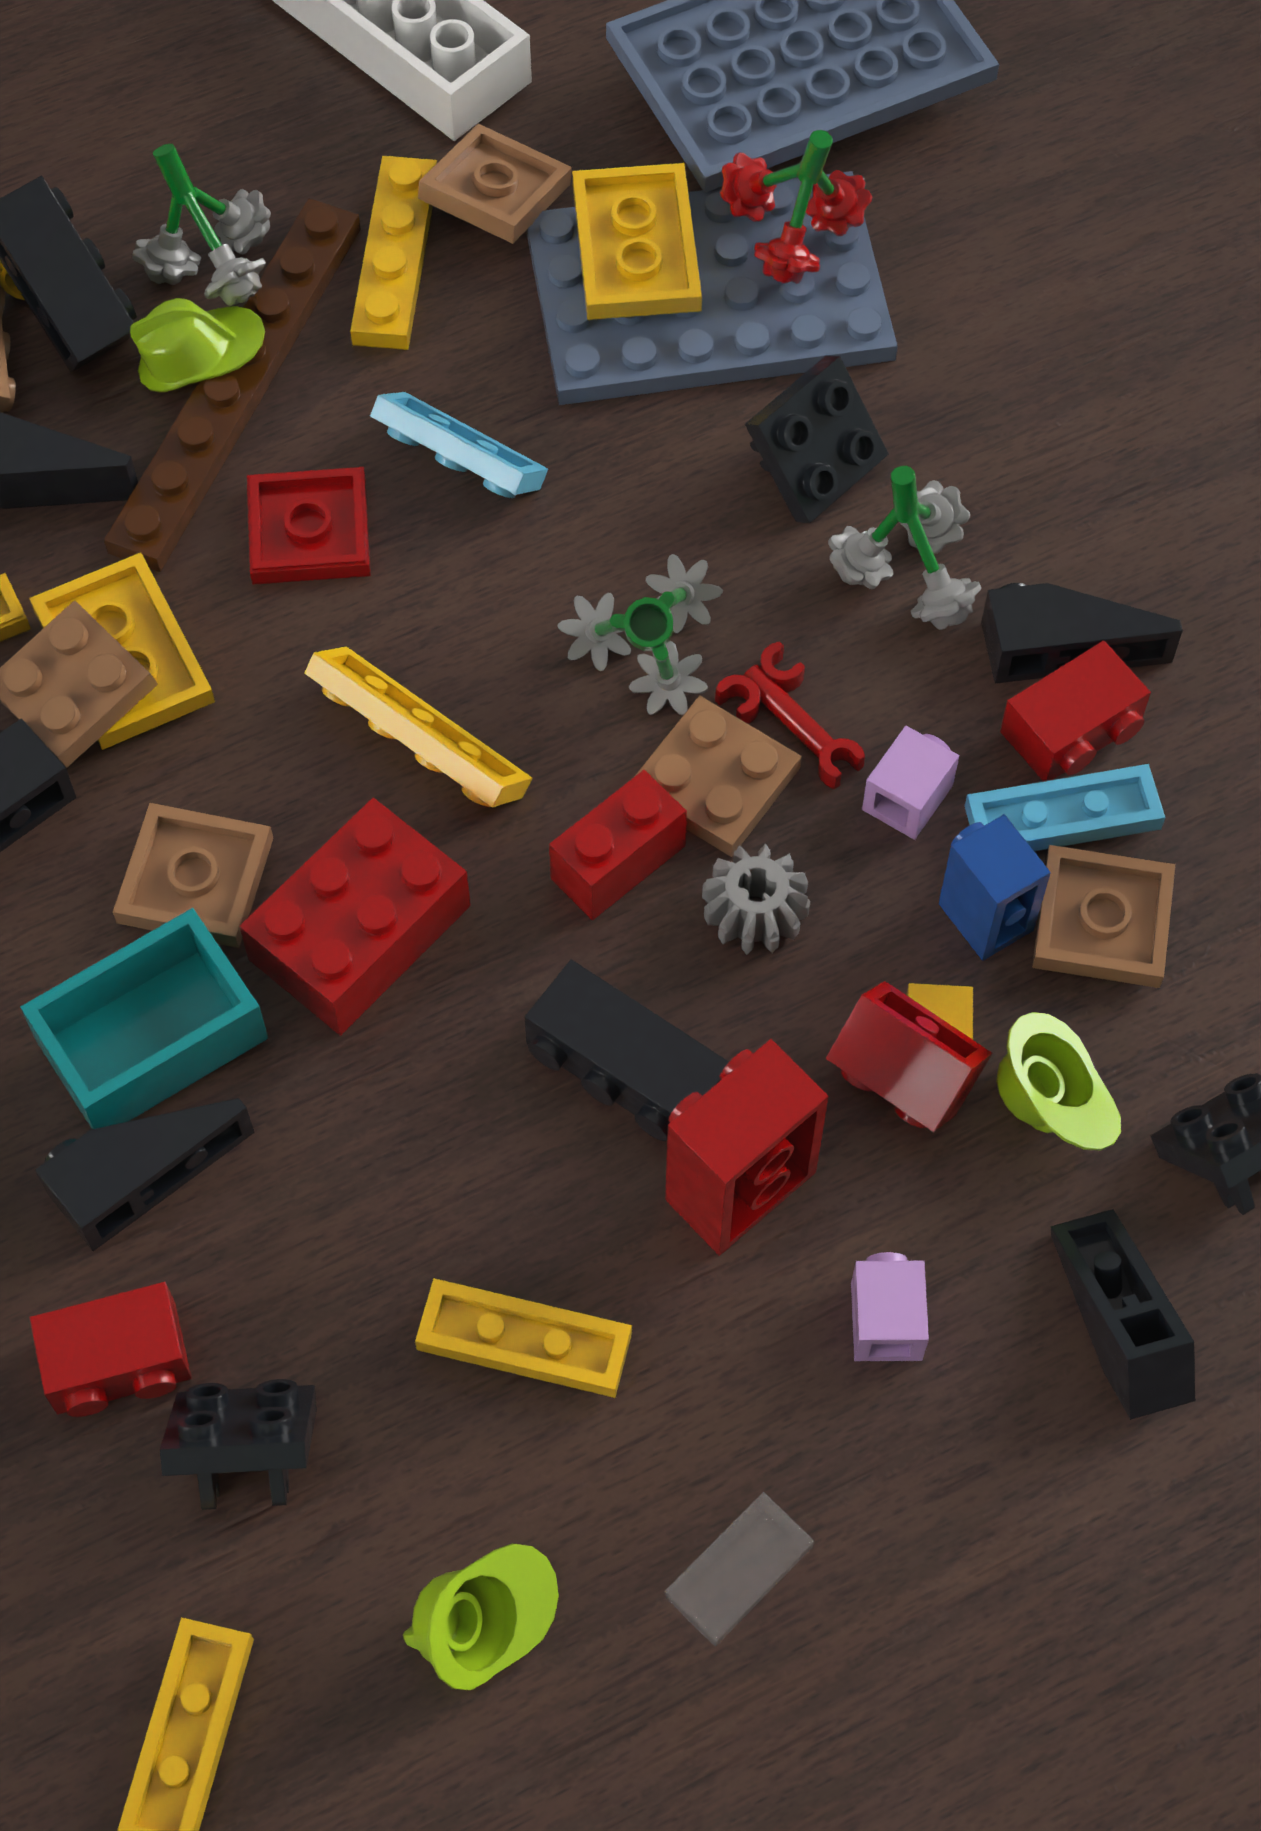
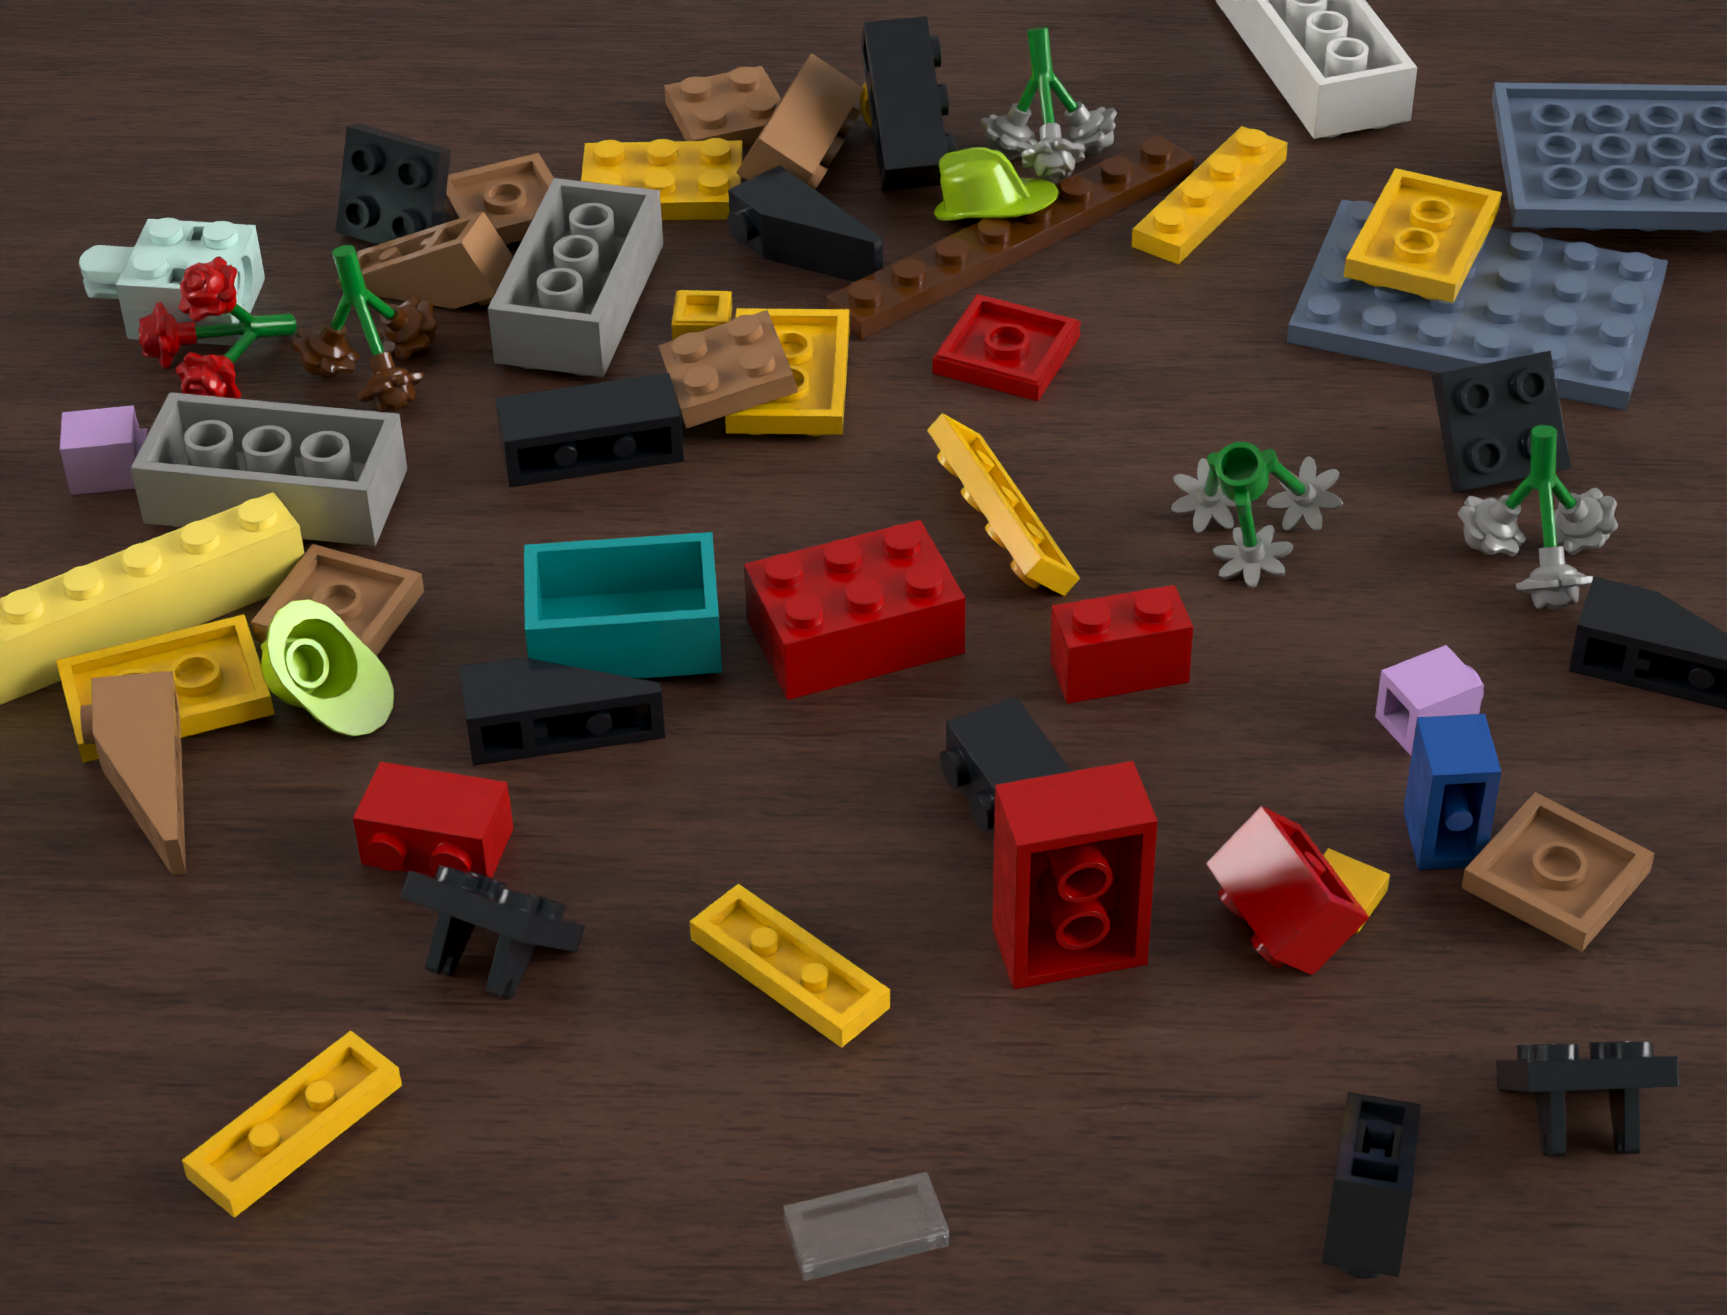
camera: 30 degrees right, 20 degrees down
(194, 863) = (745, 527): medium nougat plate -> none
(458, 444) = (1173, 332): medium azure plate -> none
(484, 1615) = (610, 1141): lime piece -> none
(495, 183) = (1323, 168): medium nougat plate -> none
(721, 773) = (1256, 639): medium nougat plate -> none
(761, 877) = (1223, 731): light grey gear -> none
(770, 687) = (1347, 595): red bar -> none
(835, 205) = (1555, 232): red plant -> none
(889, 1308) = (1139, 1080): lavender brick -> none
(1054, 1085) = (1418, 964): lime piece -> none
(1075, 807) = (1585, 780): medium azure plate -> none
(1076, 713) = (1629, 706): red brick -> none

